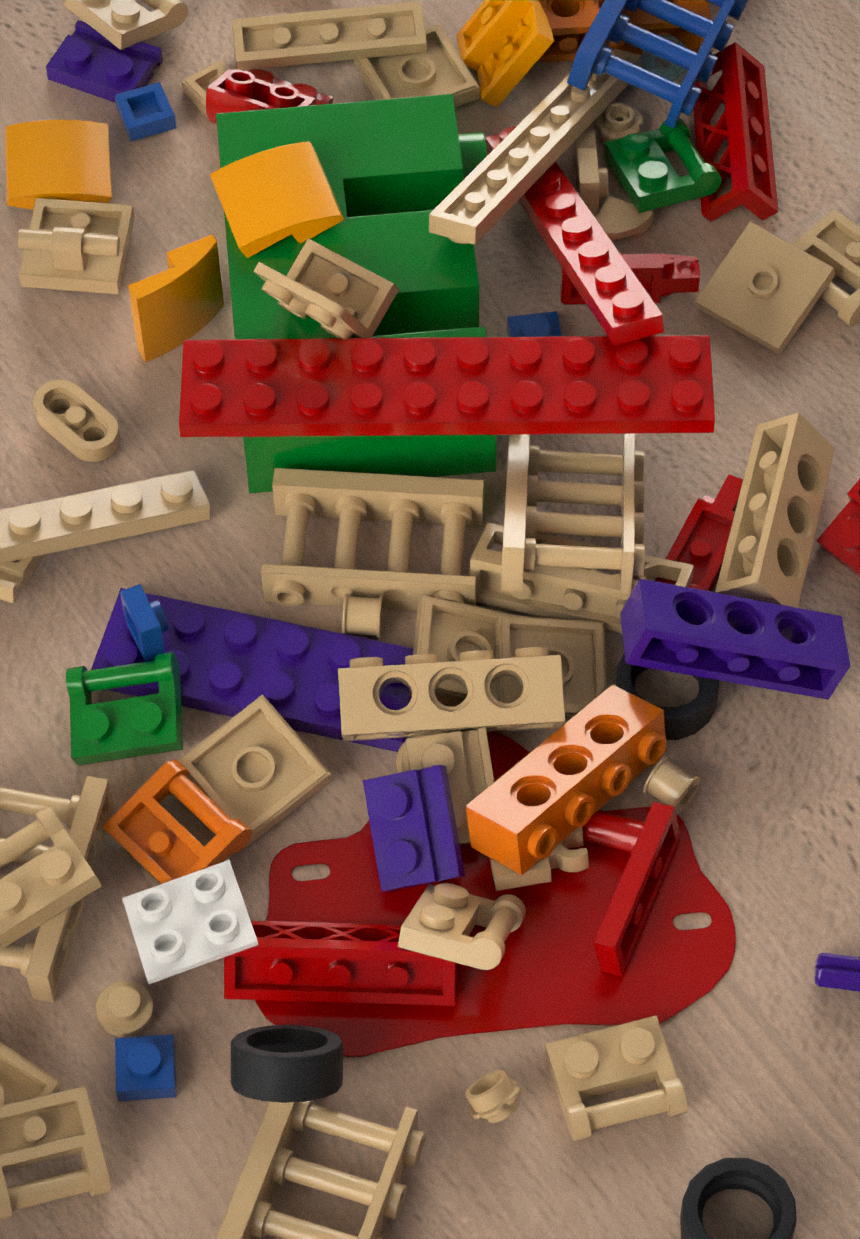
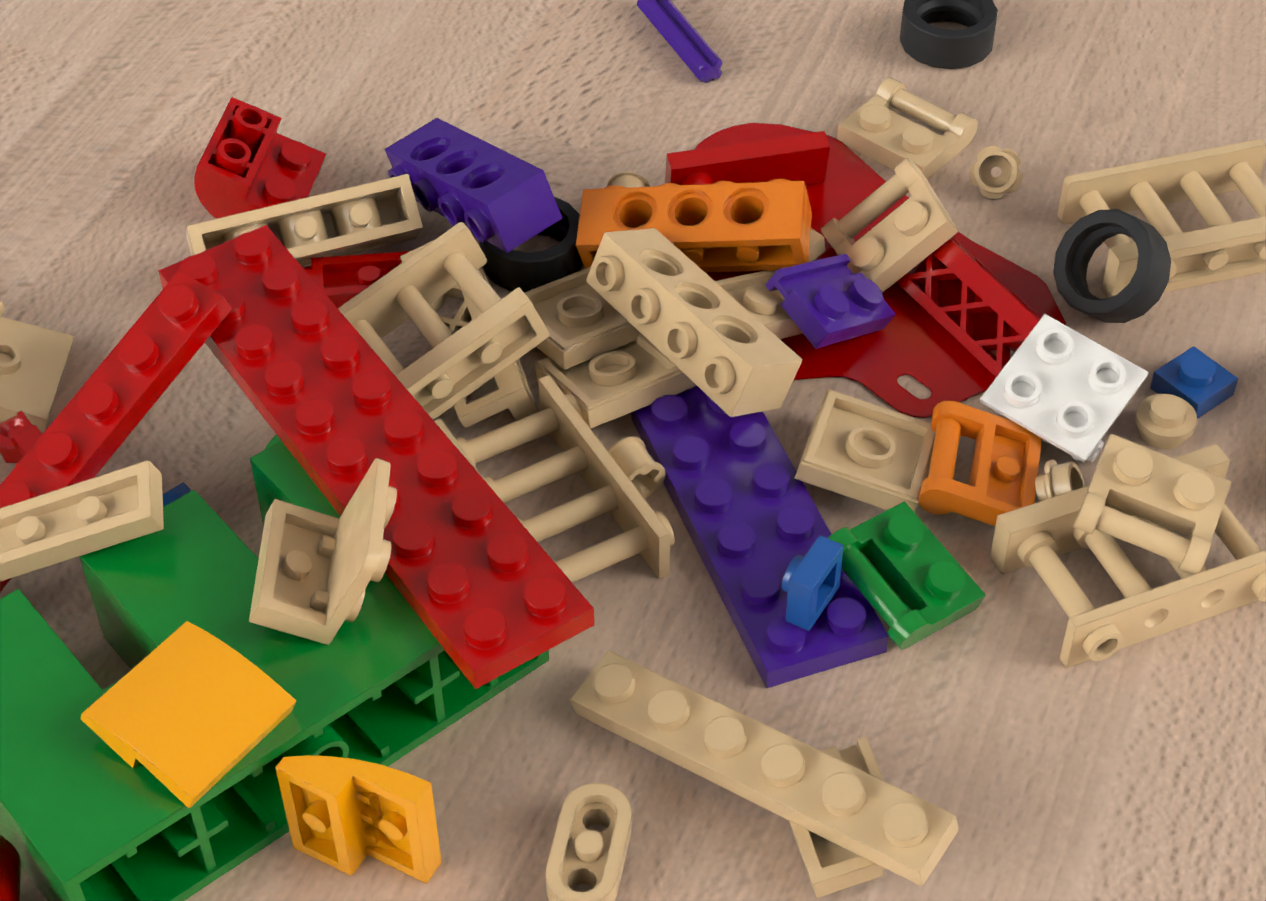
camera: 125 degrees left, 10 degrees down
(115, 870) = (1058, 480): none -> tan plate

